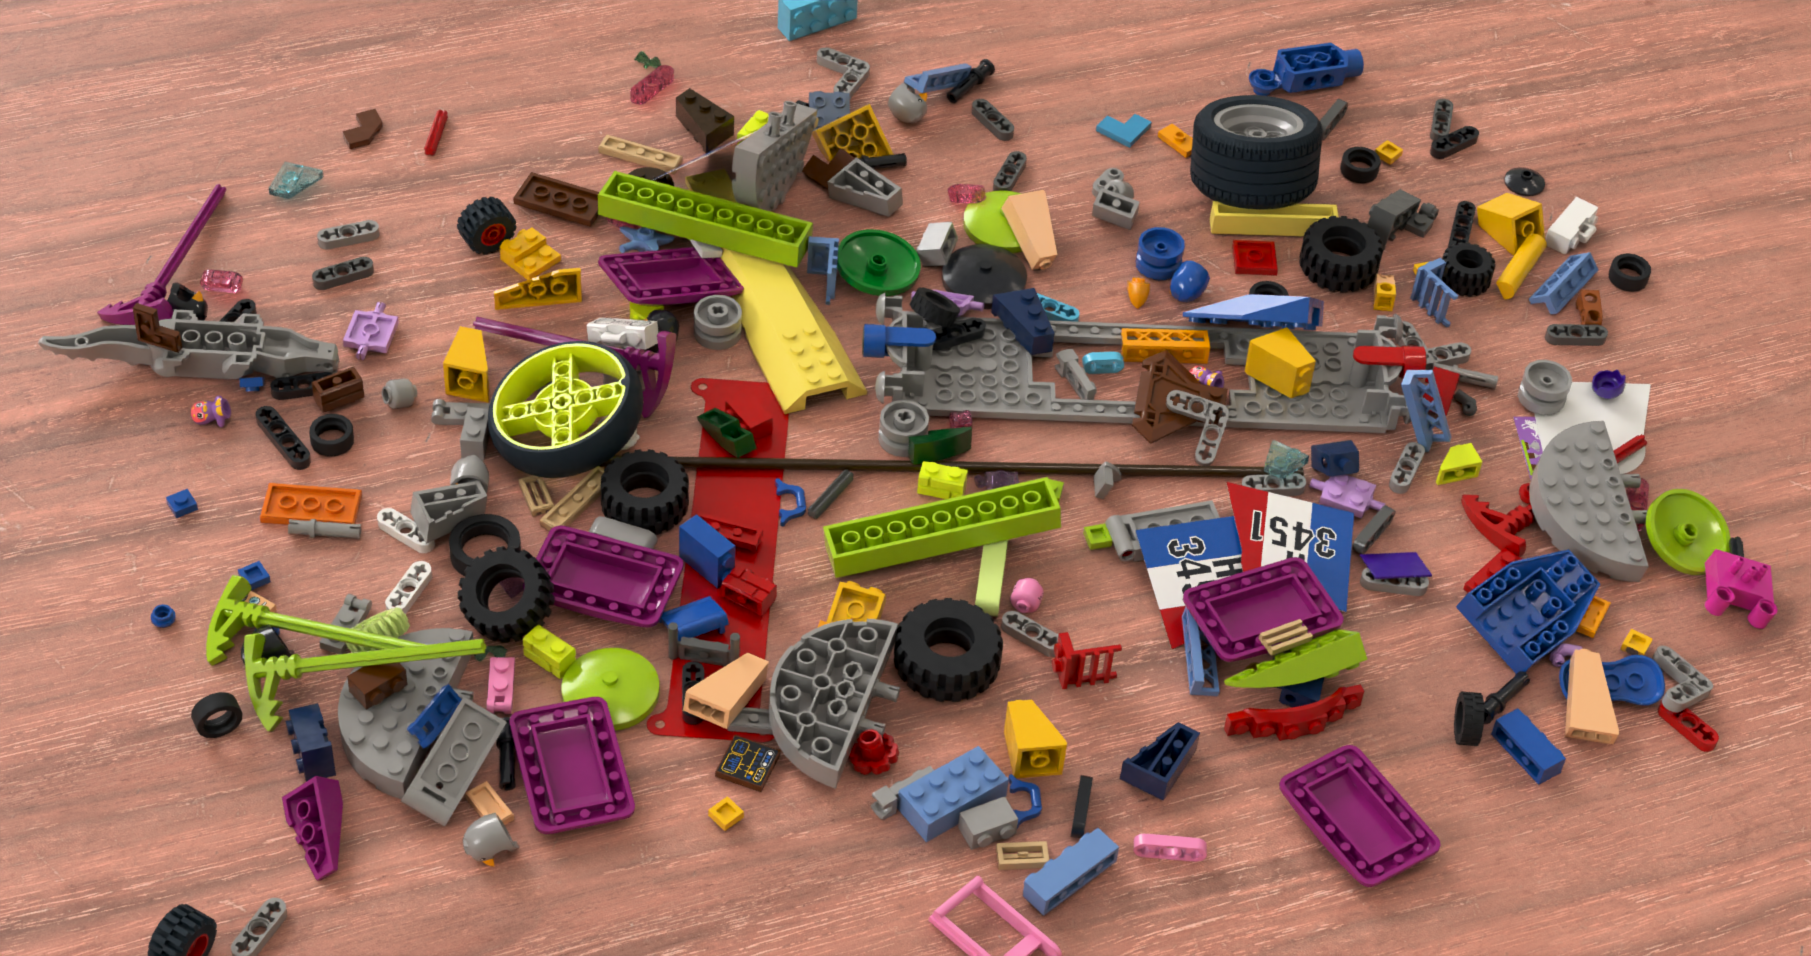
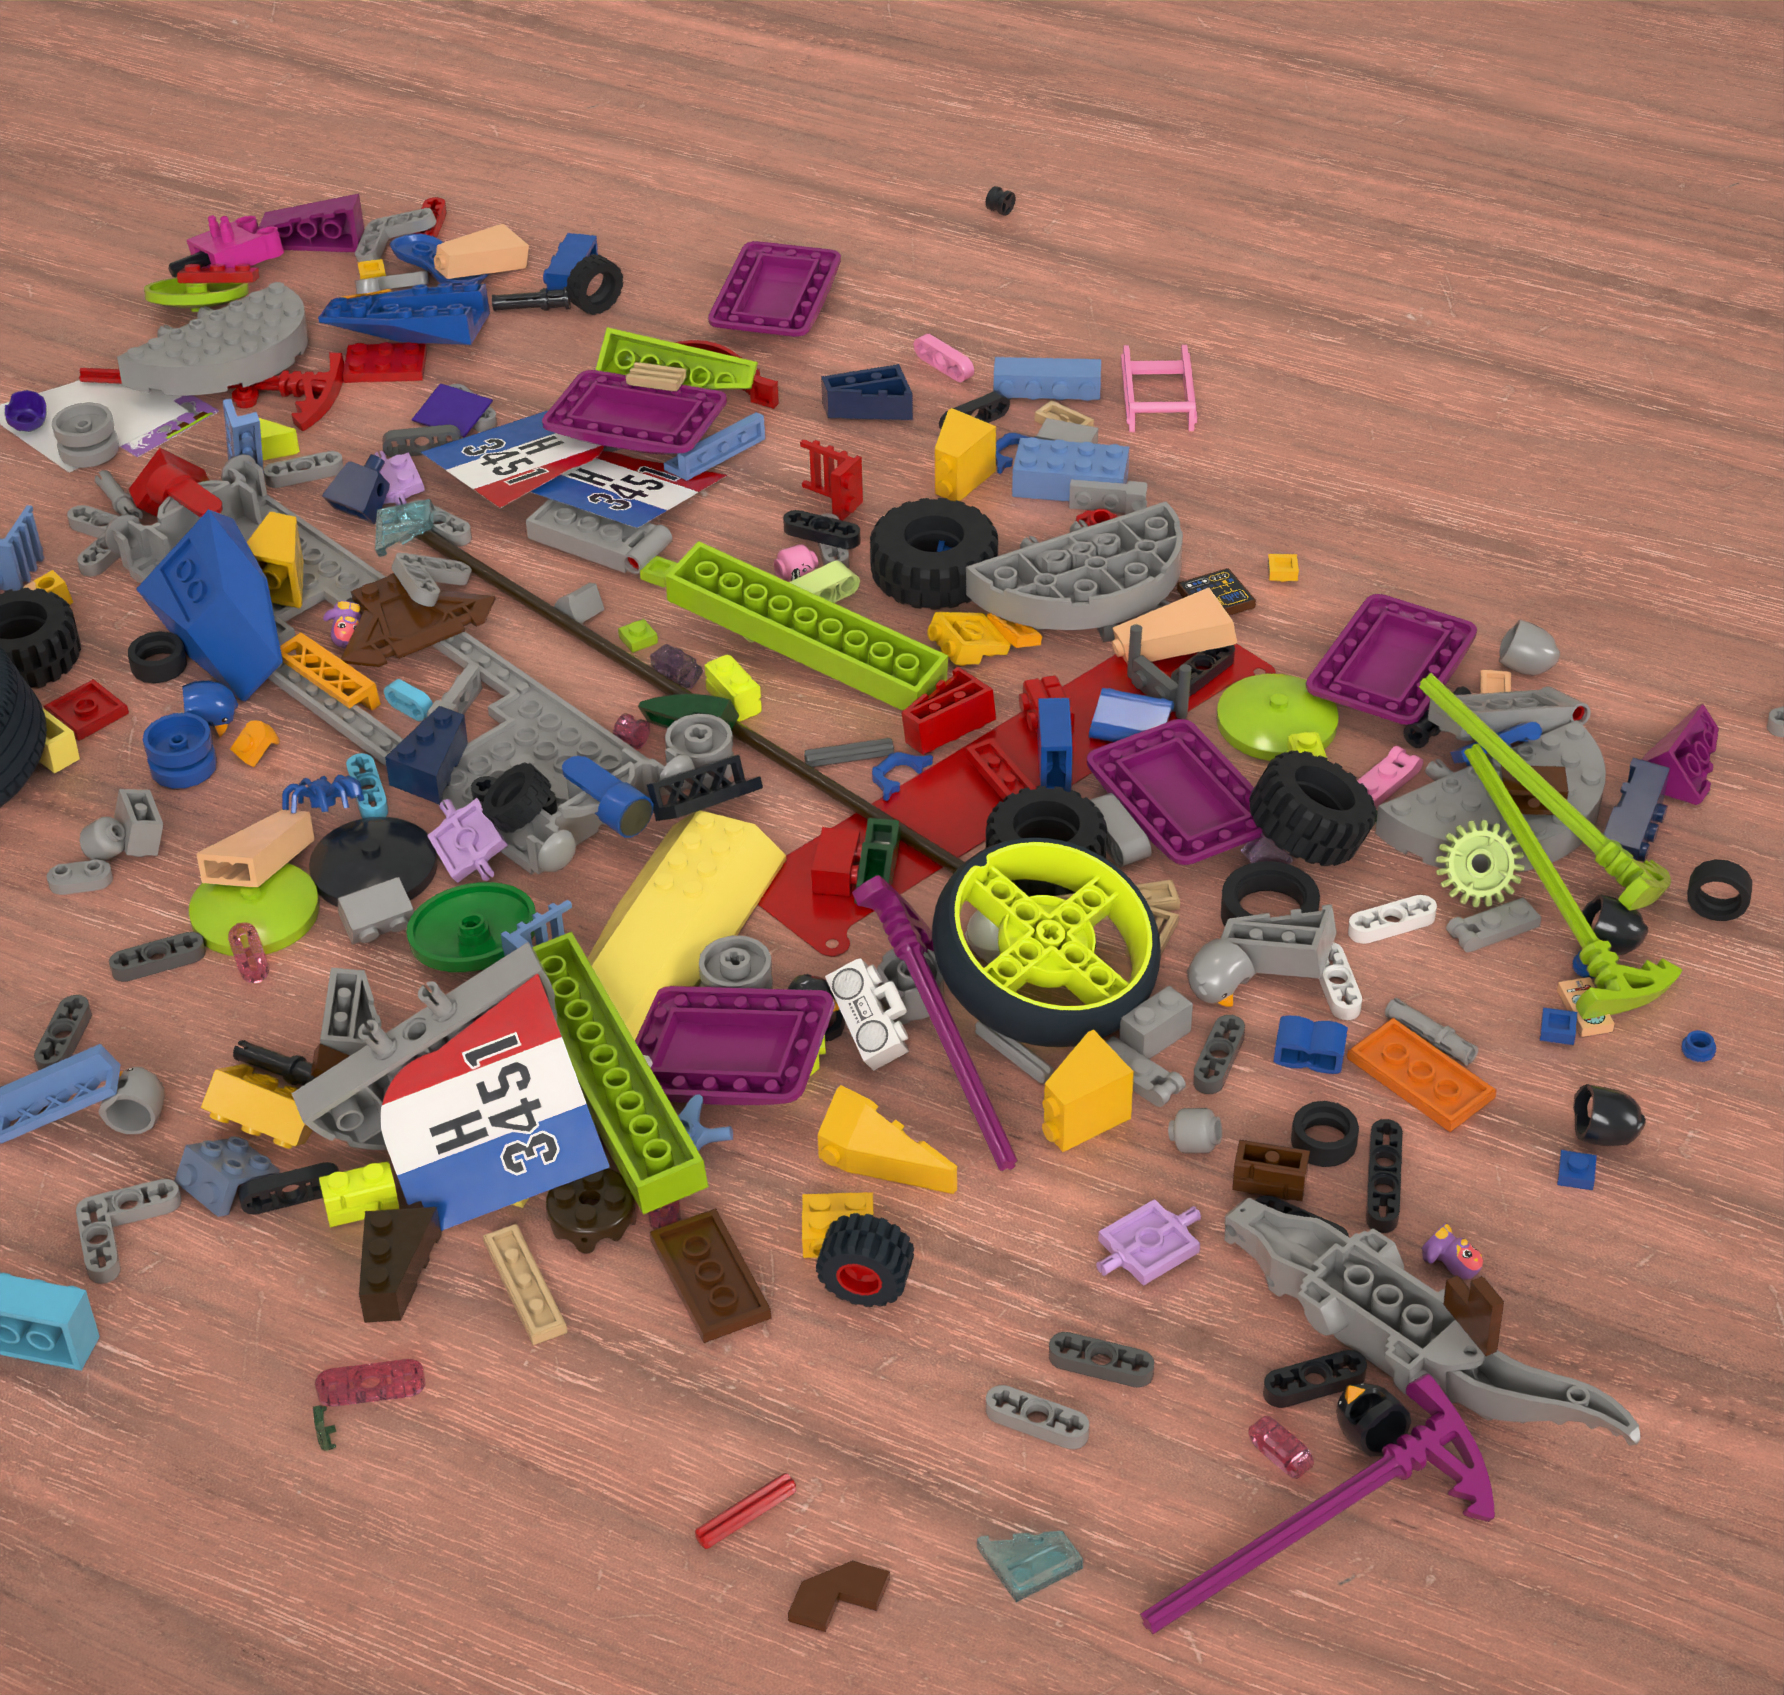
camera: 130 degrees left, 5 degrees down
(179, 525) = (1614, 1116): none -> black piece
(382, 477) = (1310, 1044): none -> blue brick
(429, 456) = (1220, 1065): none -> dark grey beam
(800, 544) = (948, 712): none -> red wedge
(857, 394) = (708, 797): none -> black fence
(1034, 631) = (805, 526): none -> black beam
(1048, 273) = (322, 792): none -> blue animal
(1590, 600) = (392, 281): none -> light grey beam
(1697, 551) = (218, 274): none -> red plate
(1729, 644) = (319, 225): none -> magenta wedge

